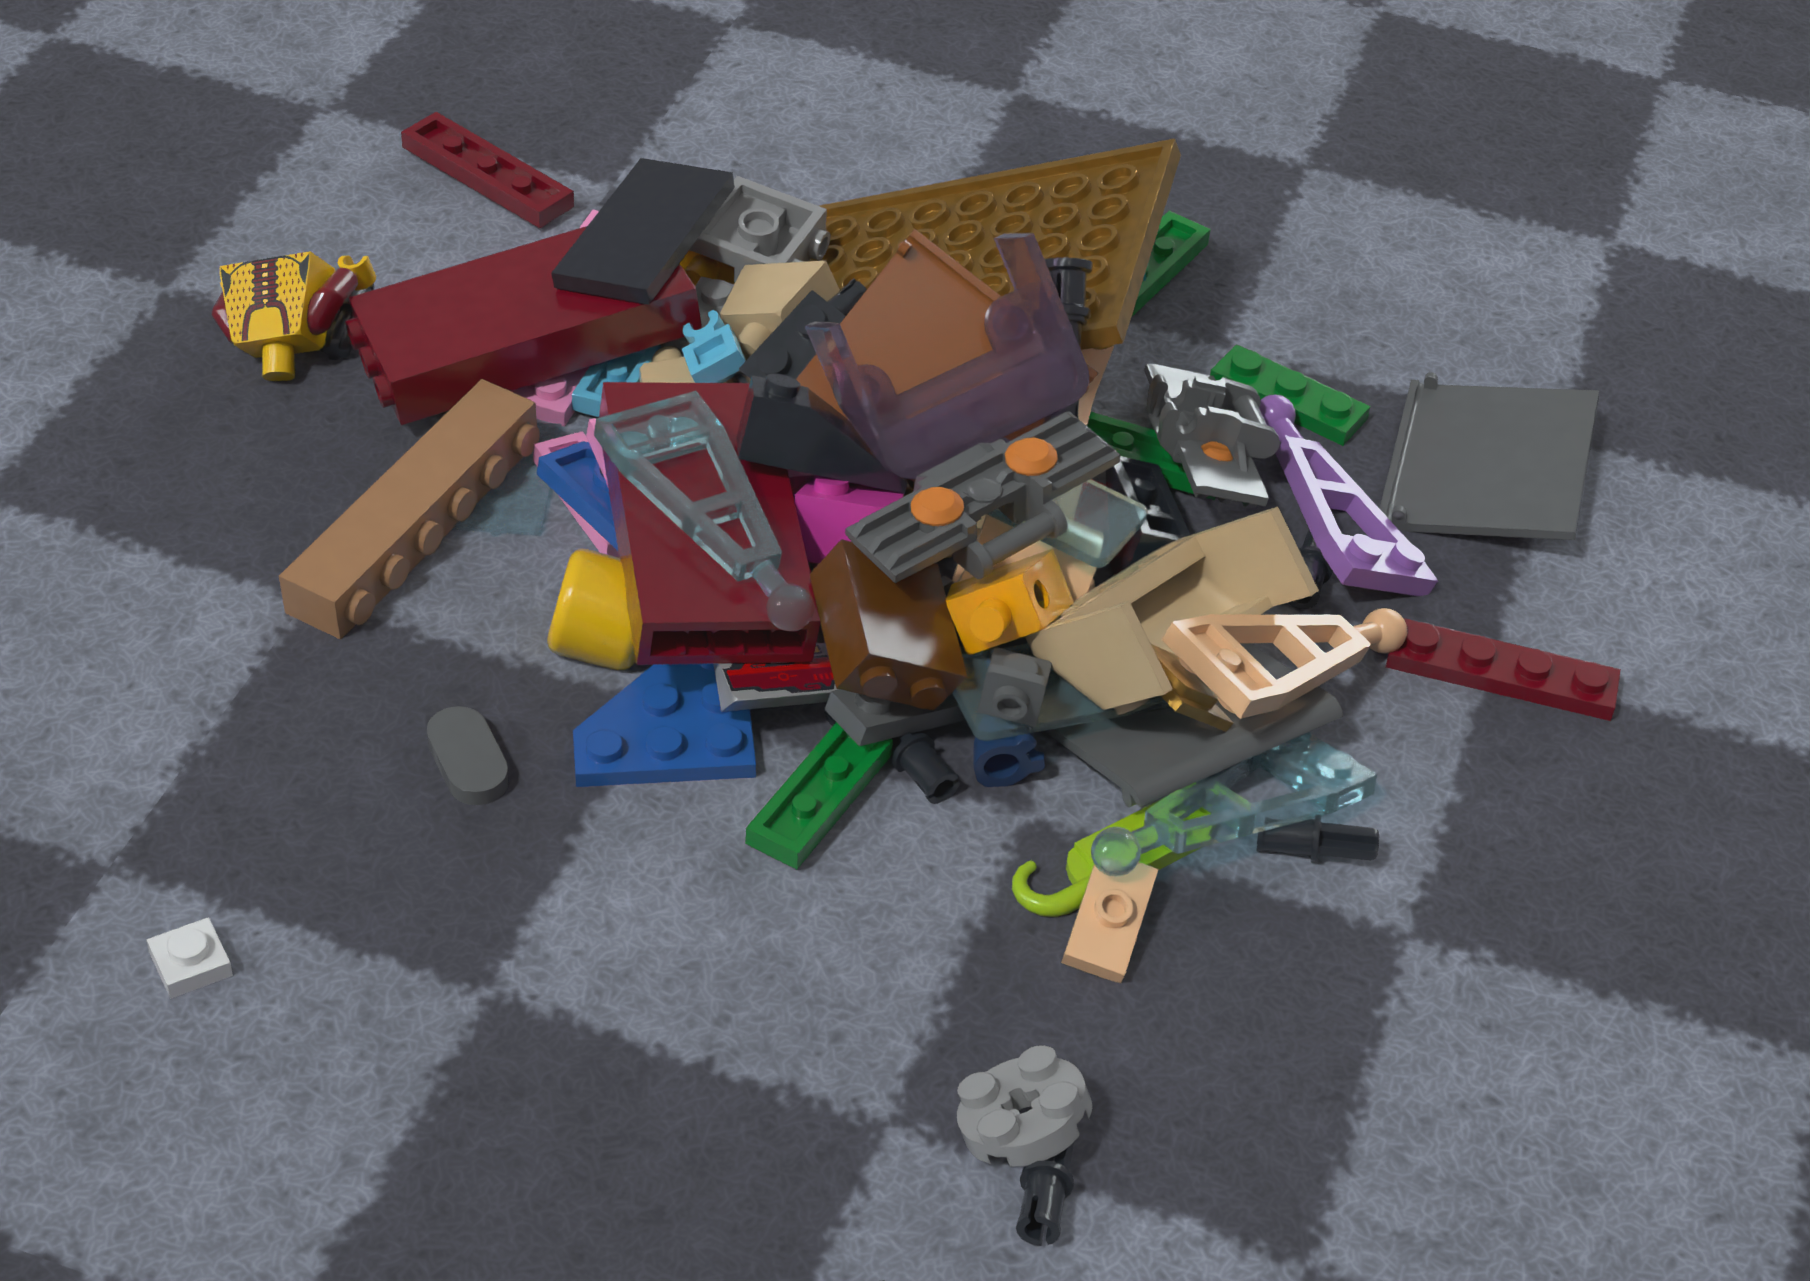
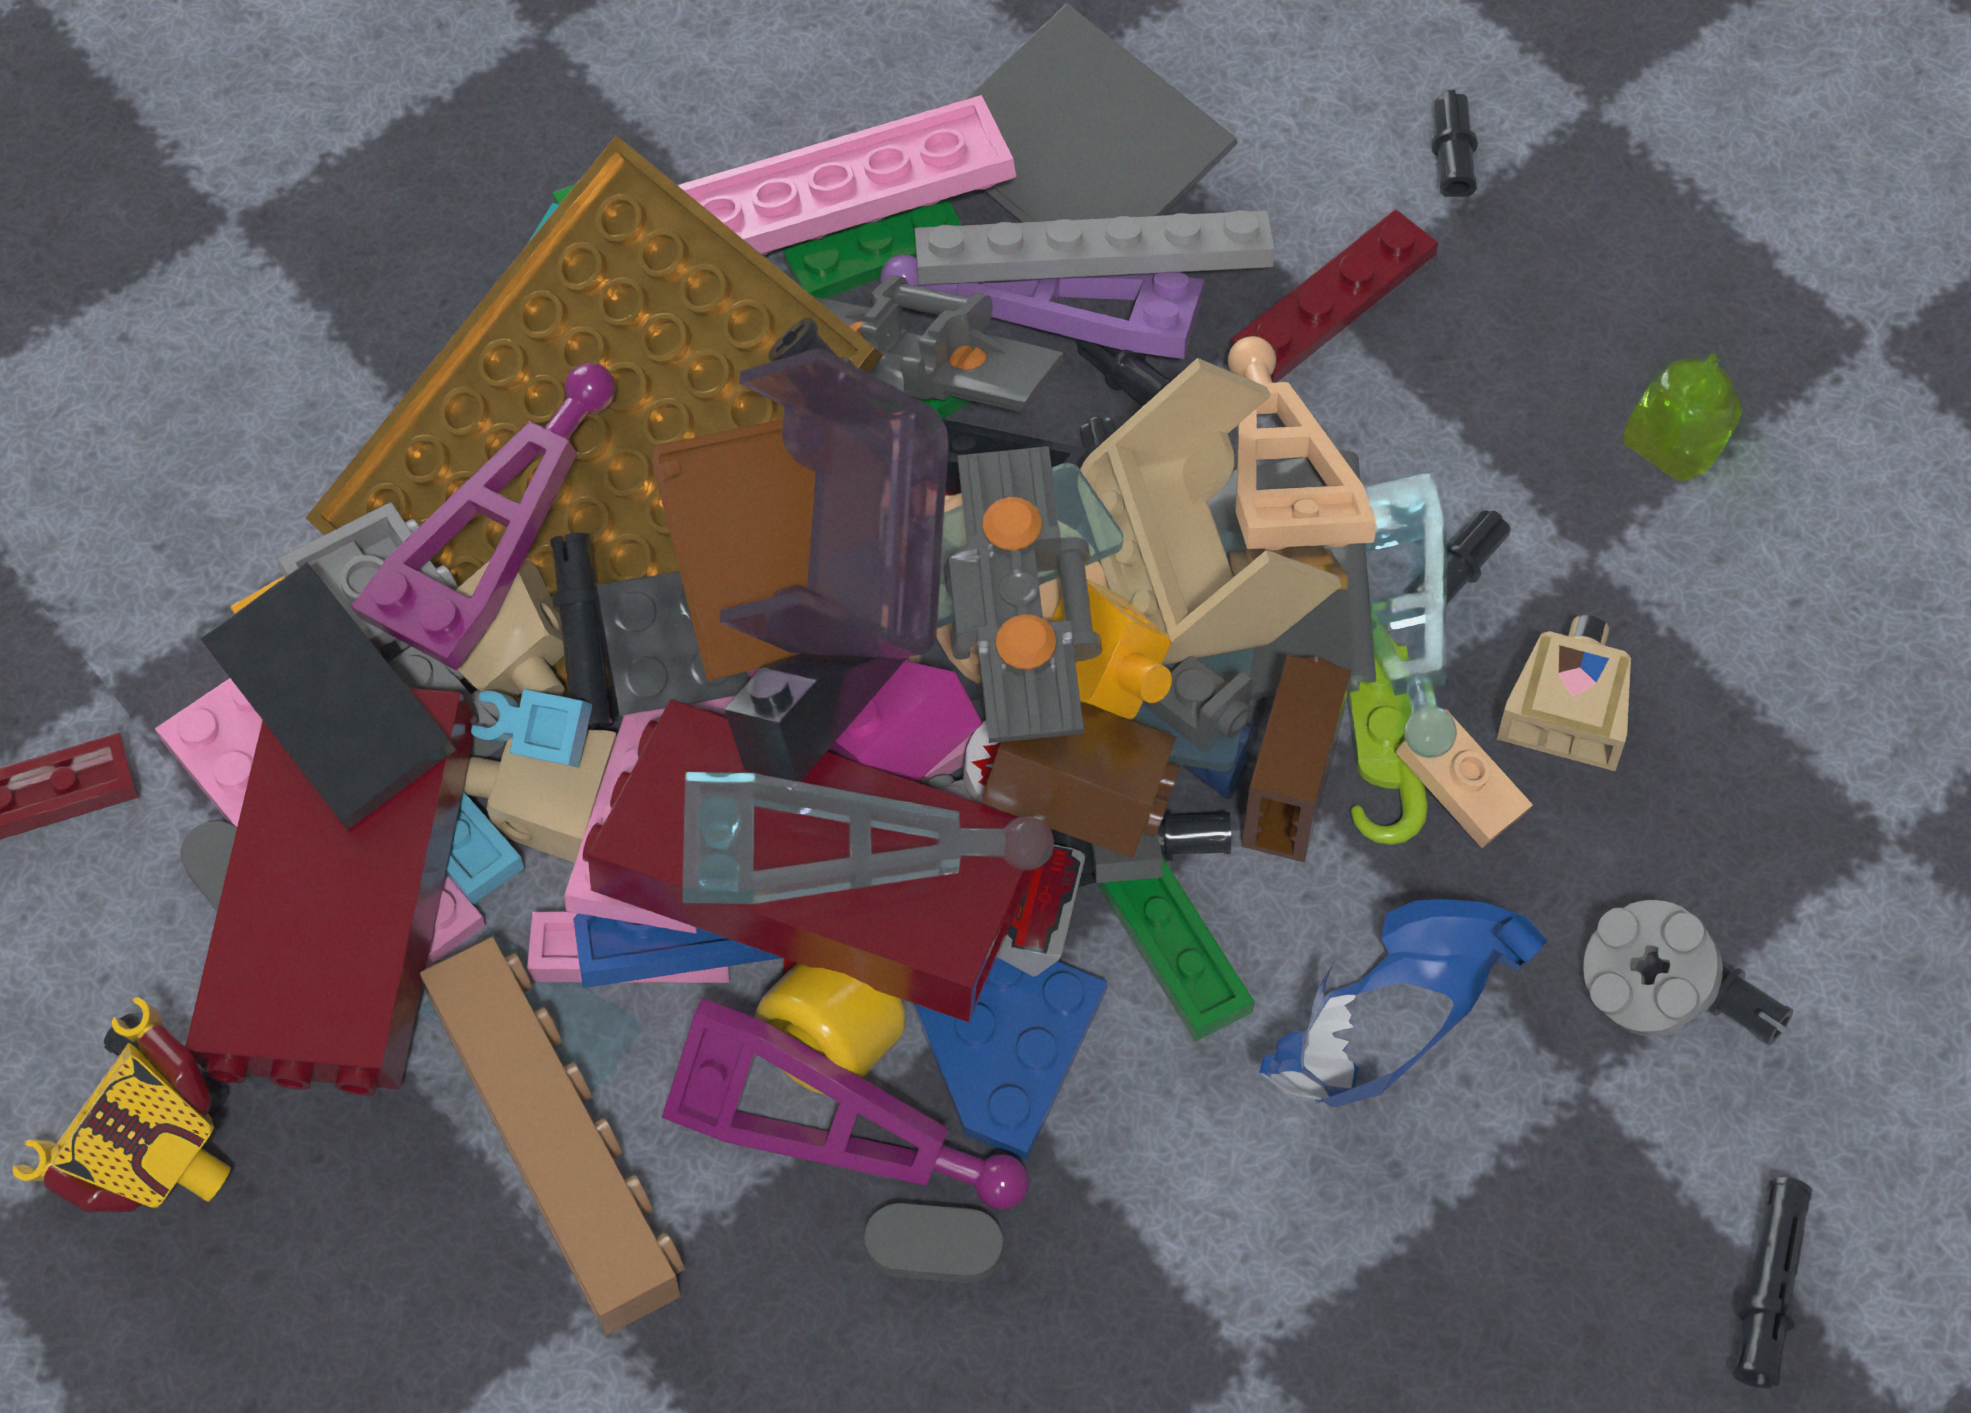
camera: 55 degrees left, 15 degrees up
(517, 556) = (714, 1077): none -> magenta plate
(747, 239) = (434, 615): none -> magenta plate
(785, 907) = (1429, 945): none -> blue animal
(1028, 781) = (1295, 757): none -> reddish brown brick
(1248, 956) = (1572, 697): none -> tan torso
(1312, 339) = (859, 176): none -> bright pink plate
(1399, 499) = (1093, 247): none -> light grey plate
(1609, 944) = (1685, 417): none -> clear neon green piece
(1723, 684) = (1454, 145): none -> black axle

